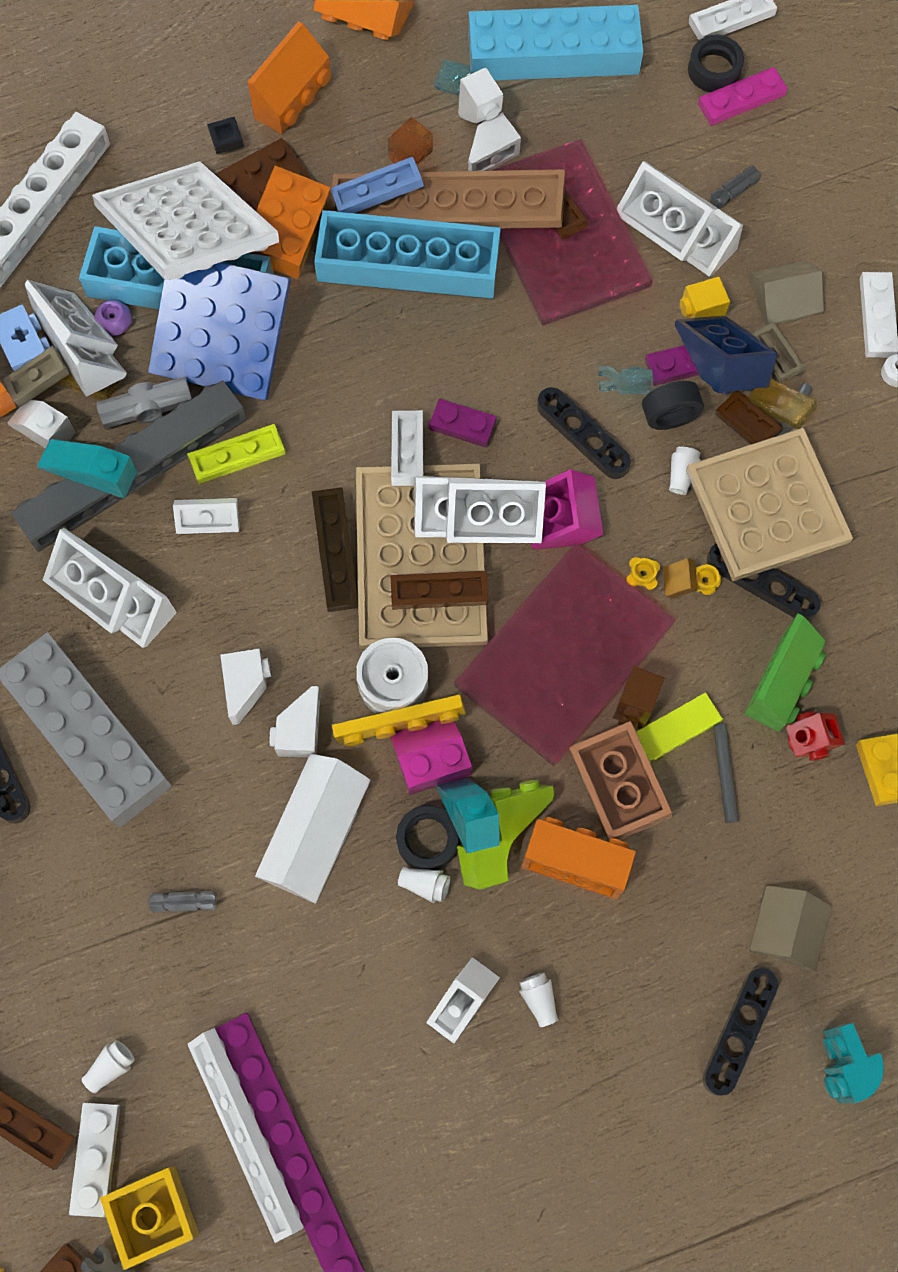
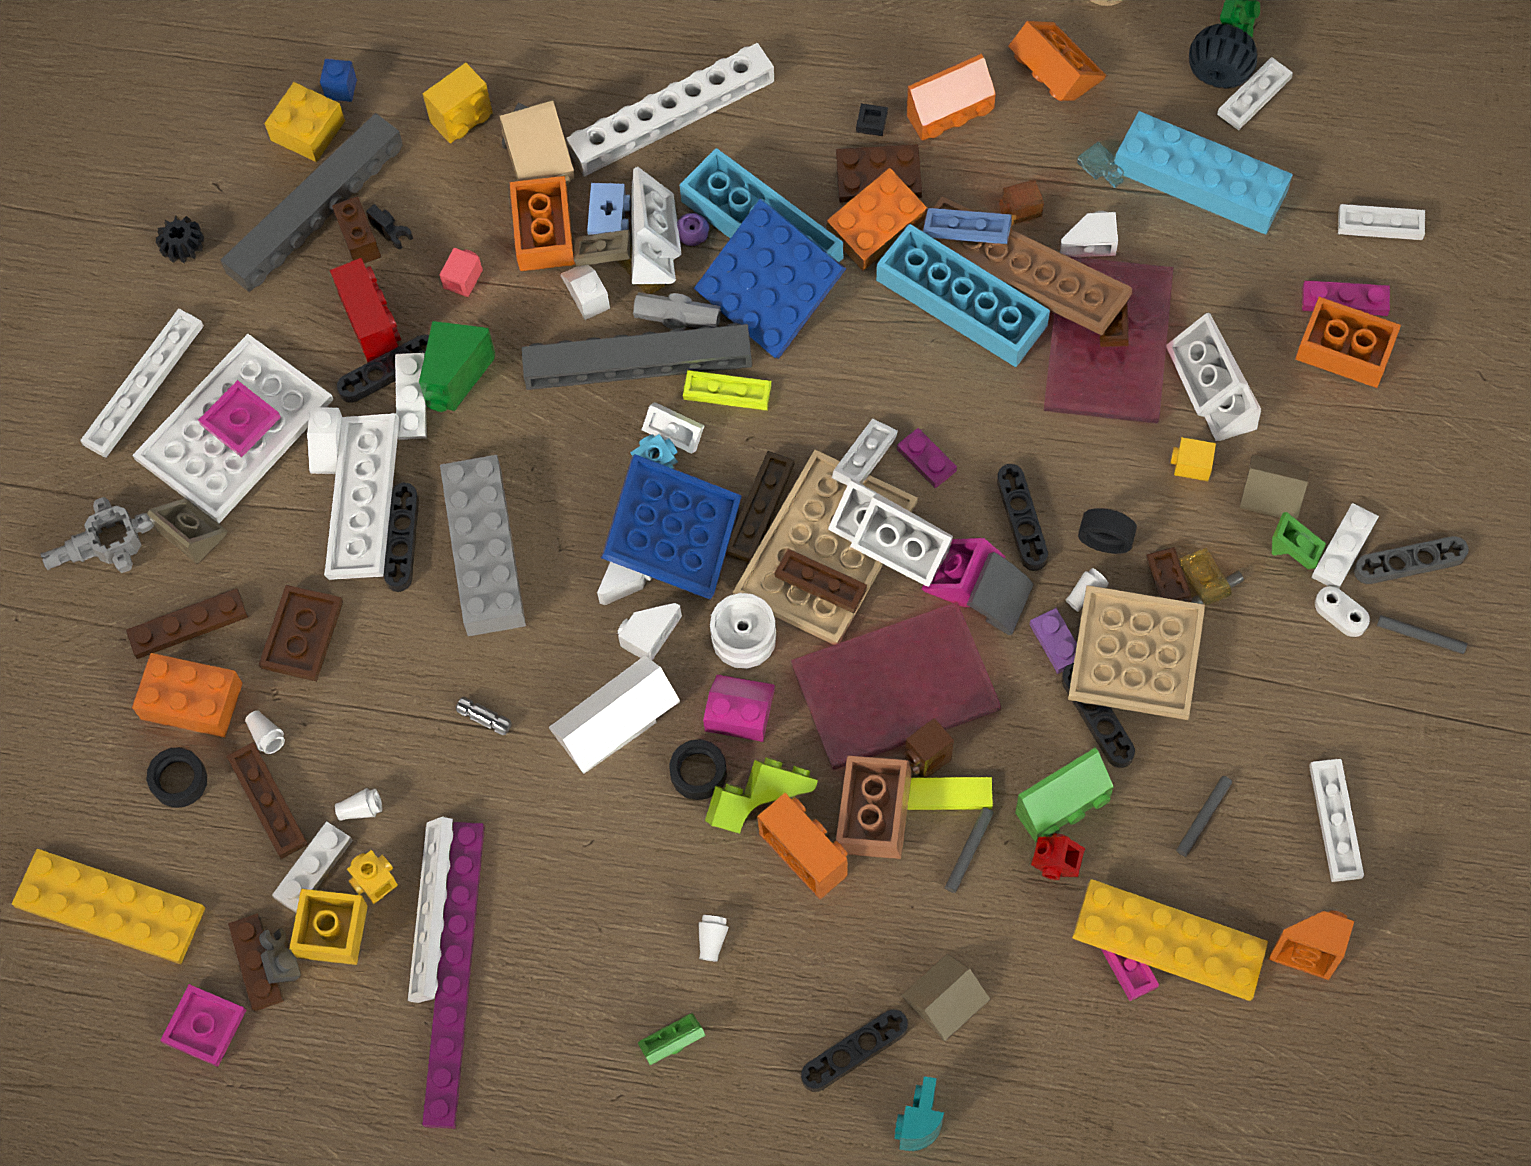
camera: 35 degrees right, 5 degrees down
(90, 466) = (602, 341): teal slope -> none
(106, 590) = (561, 447): white slope -> none
(176, 1135) = (371, 876): none -> yellow brick
(185, 220) = (789, 178): white plate -> none
(206, 564) = (656, 444): none -> medium azure brick
(264, 613) = (671, 526): none -> blue plate
(412, 717) = (737, 668): yellow plate -> none
(426, 883) = (676, 803): white cone -> none
(463, 1000) = (651, 904): white slope -> none
(471, 814) = (737, 765): teal slope -> none
(479, 97) = (1101, 190): white slope -> none
(562, 1126) = (671, 1039): none -> bright green plate
(610, 513) = (1000, 593): none -> dark grey slope
(630, 381) = (1085, 492): clear light blue plate -> none
(649, 566) = (1000, 647): yellow plate -> none
(670, 365) = (1140, 500): magenta plate -> none
(680, 578) = (1027, 675): pearl gold tile -> none
(683, 531) = (1055, 639): none -> medium lavender plate
(712, 574) = (1052, 681): yellow plate -> none
(719, 46) = (1340, 239): black tyre -> none
(726, 354) = (1180, 510): dark blue slope -> none
(735, 186) = (1286, 374): dark grey axle -> none
(774, 130) = (1348, 342): none -> orange brick
(798, 368) = (1231, 556): dark tan tile -> none
(839, 328) = (1297, 541): none -> bright green slope

